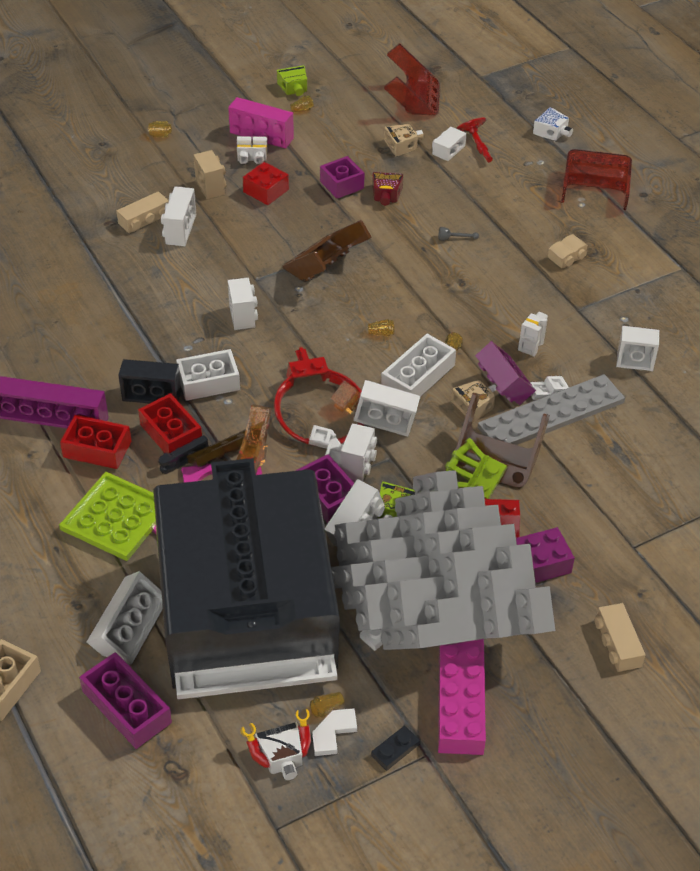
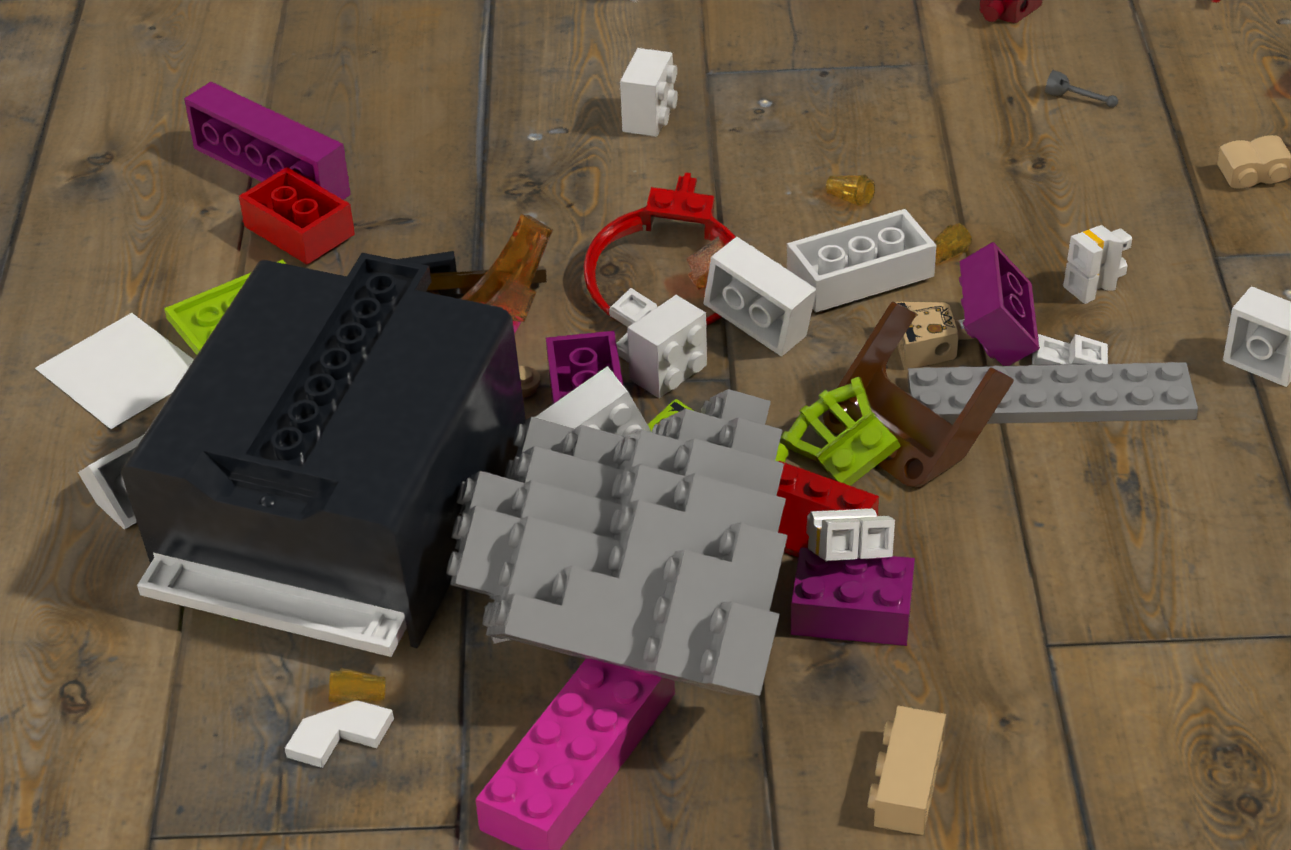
camera: 30 degrees right, 5 degrees down
(55, 570) = (118, 370): none -> white sticker
(125, 700) = (67, 569): magenta brick -> none
(148, 380) = (431, 159): black brick -> none
(169, 423) = (416, 219): red brick -> none
(208, 374) = (526, 174): white brick -> none
(280, 747) = (238, 720): torso -> none
(326, 251) = (792, 68): reddish brown windscreen -> none
(395, 748) = (414, 794): black plate -> none
(529, 526) = (850, 534): none -> white hips

